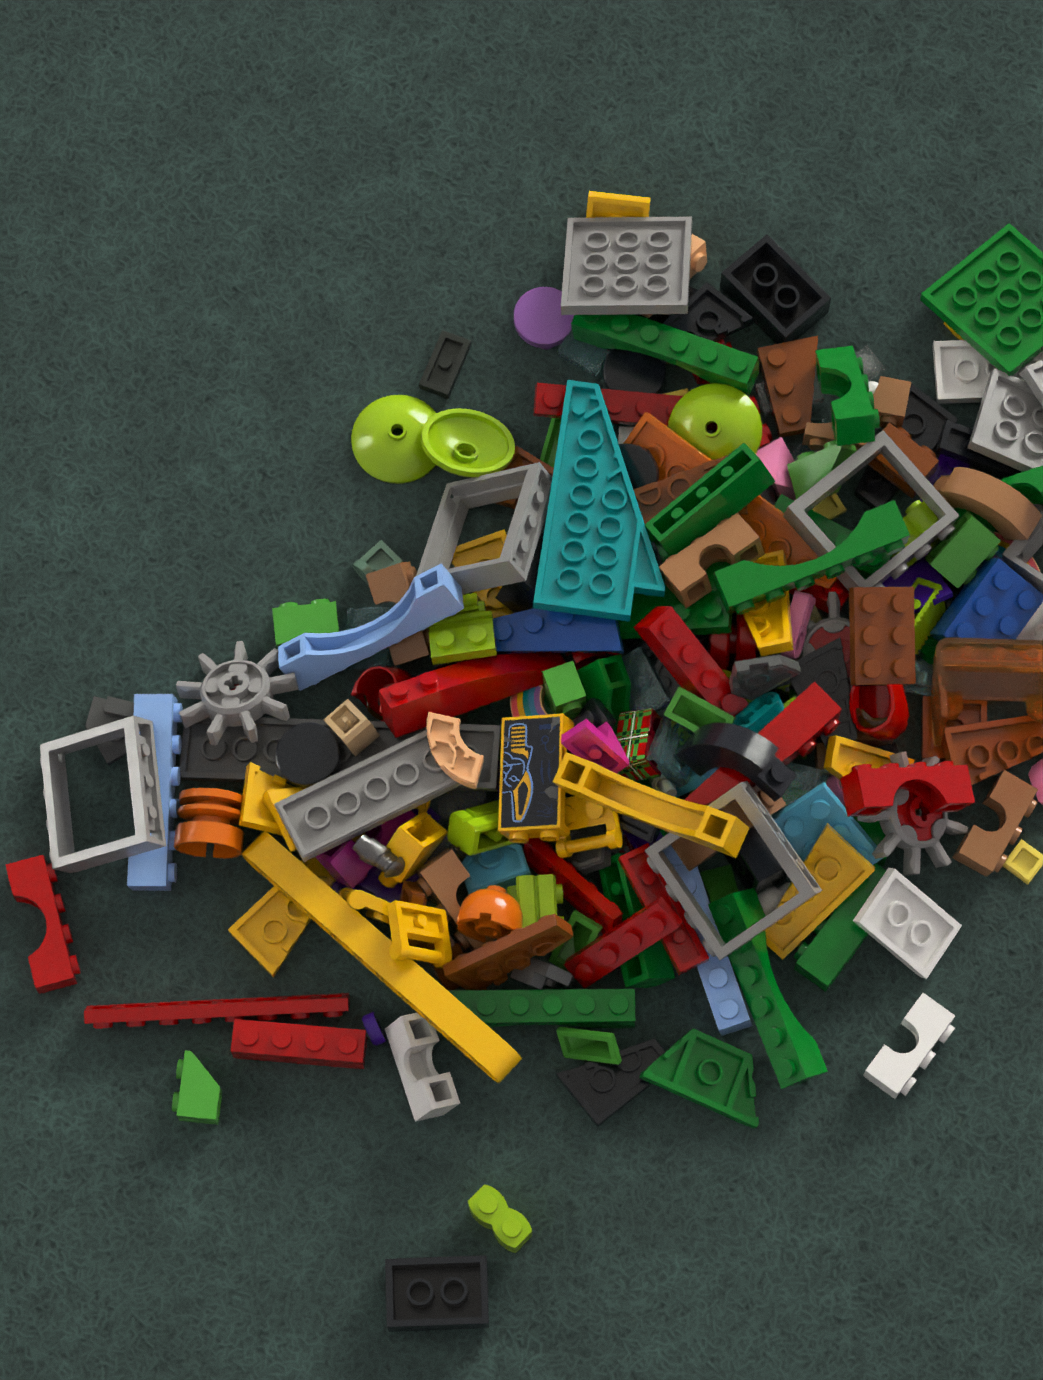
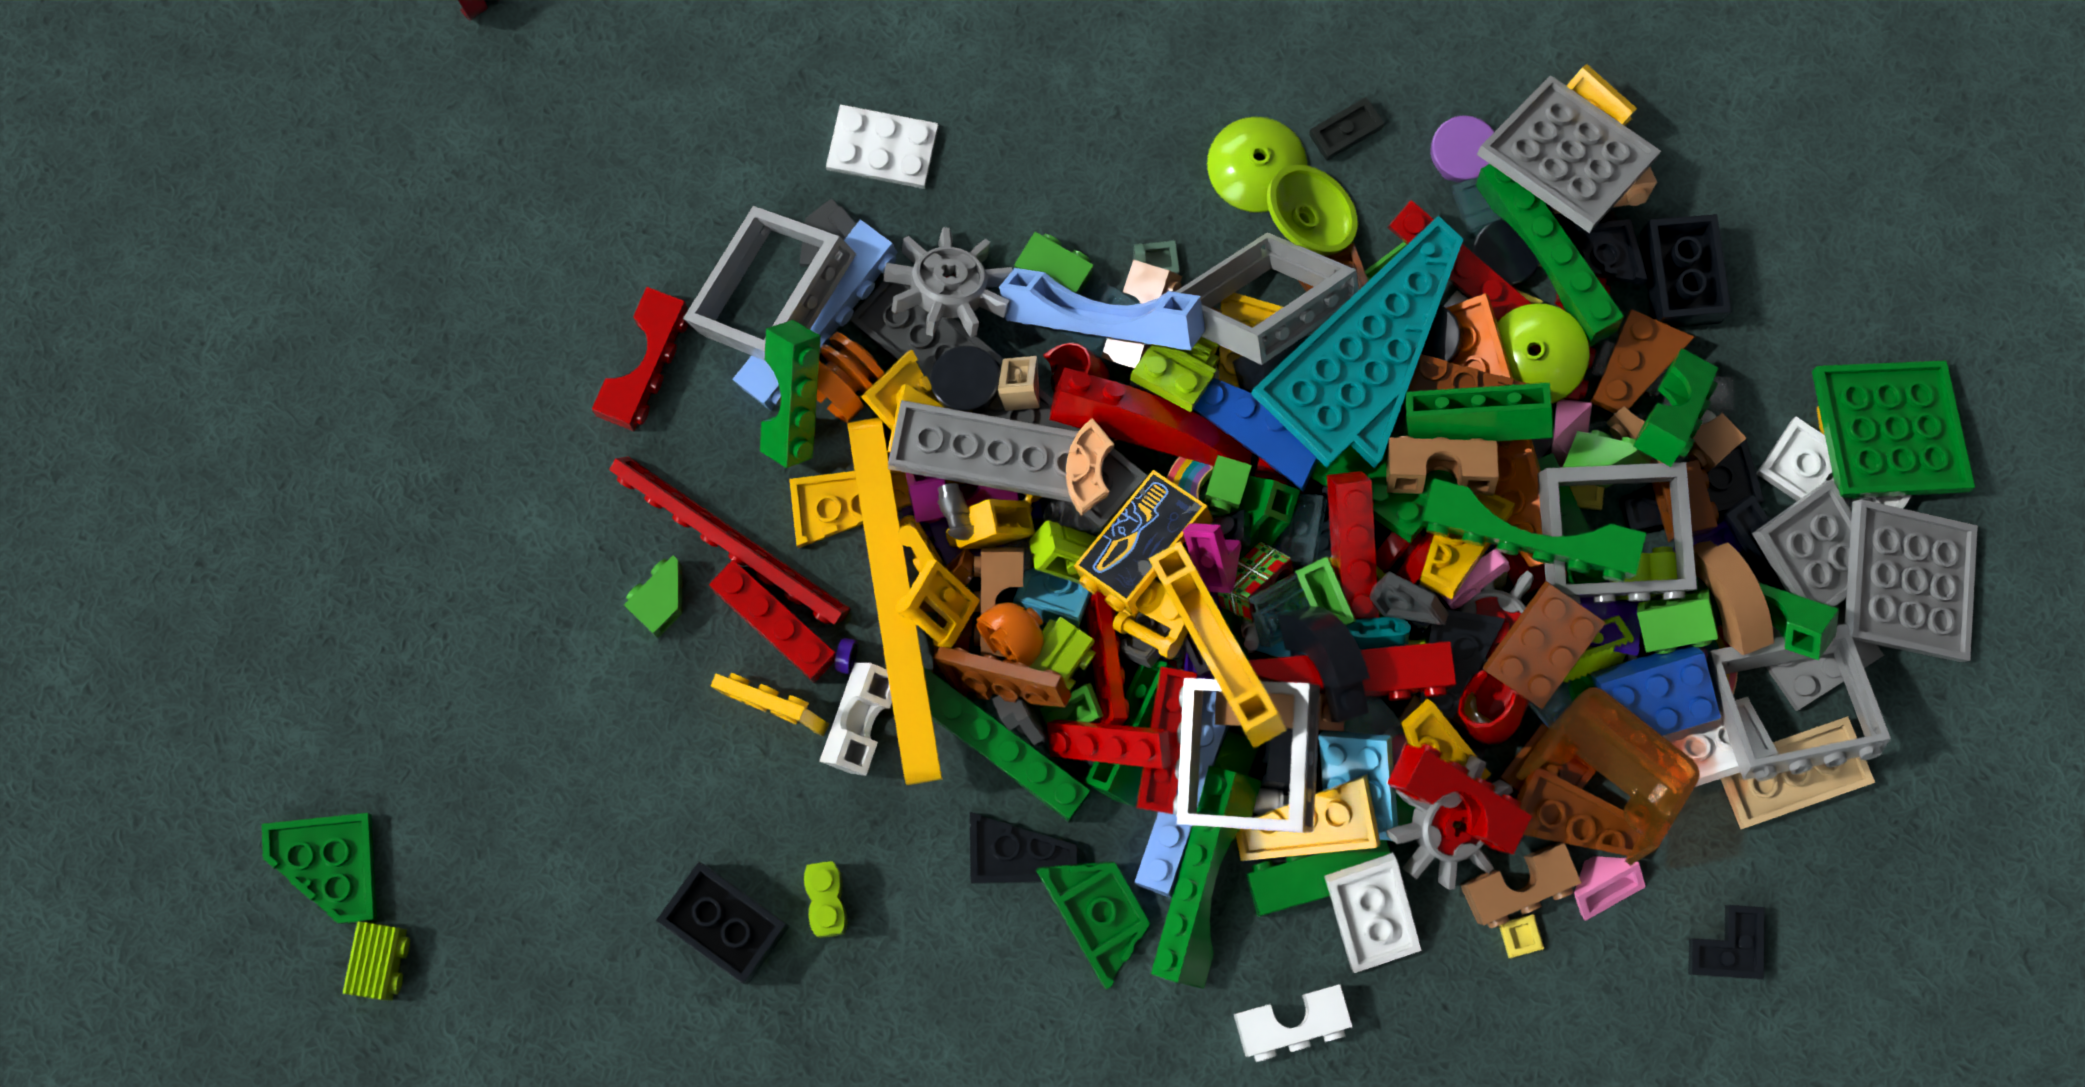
camera: 35 degrees right, 5 degrees up
(101, 629) = (882, 146): none -> white plate
(170, 829) = (794, 358): none -> green arch
(356, 1102) = (767, 698): none -> yellow wing
(589, 1045) = (1015, 809): bright green slope -> none

